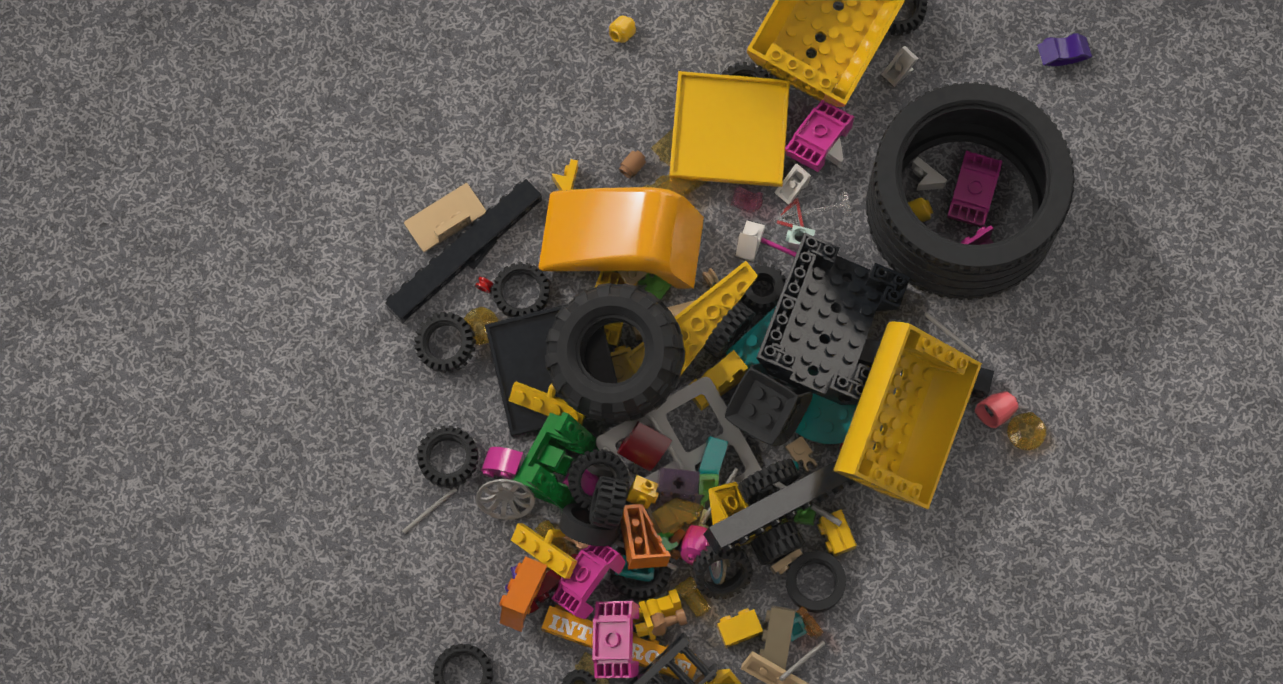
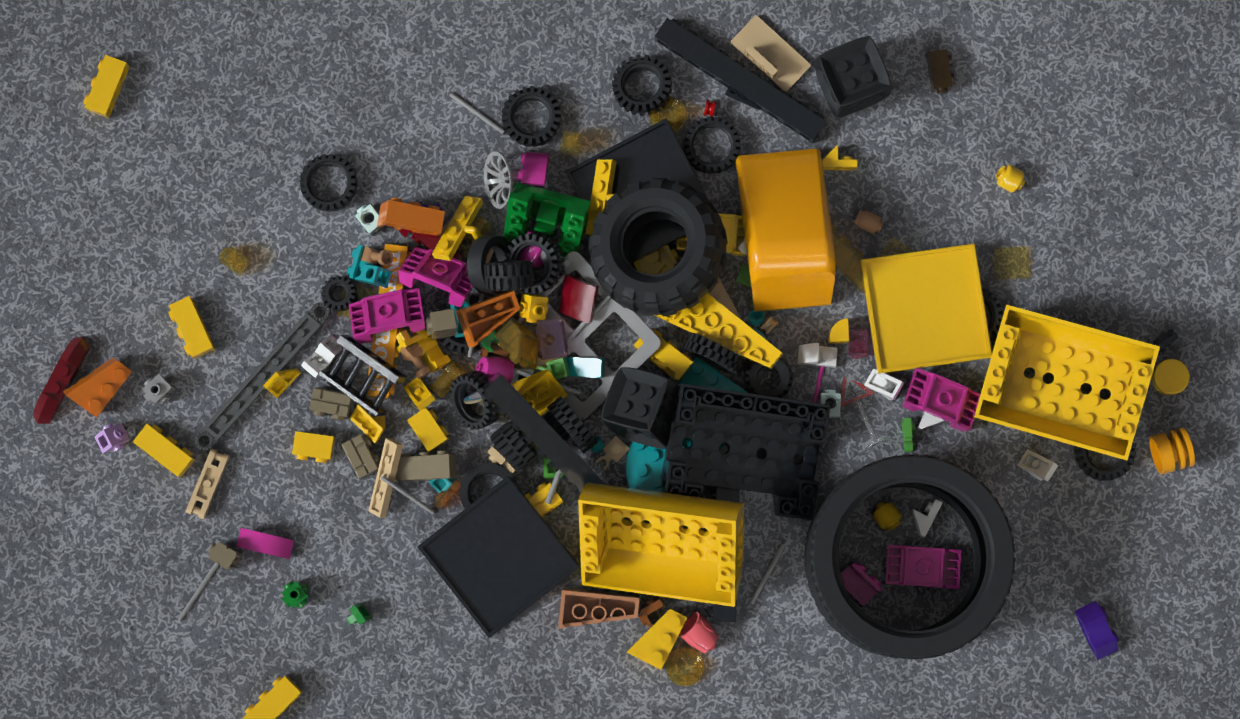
camera: 80 degrees right, 10 degrees up
(485, 423) = (571, 143): none -> clear yellow brick
(490, 142) = (853, 76): none -> black piece
(504, 68) = (939, 71): none -> dark brown brick
(520, 640) = (362, 212): none -> light aqua brick
(560, 653) = (365, 268): none -> teal hips
(640, 582) = (441, 324): none -> dark tan brick
(700, 284) = (757, 322): none -> teal hinge
(702, 48) = (1011, 263): none -> clear yellow piece
(702, 628) = (419, 393): none -> yellow slope
(732, 214) = (839, 332): none -> yellow brick
(842, 174) = (908, 429): none -> bright green plate
(882, 585) = (498, 556): none -> black tile
(951, 506) = (590, 606): none -> nougat wedge
(961, 448) = (651, 606): none -> dark orange bracket
(996, 448) = (659, 639): none -> yellow wedge

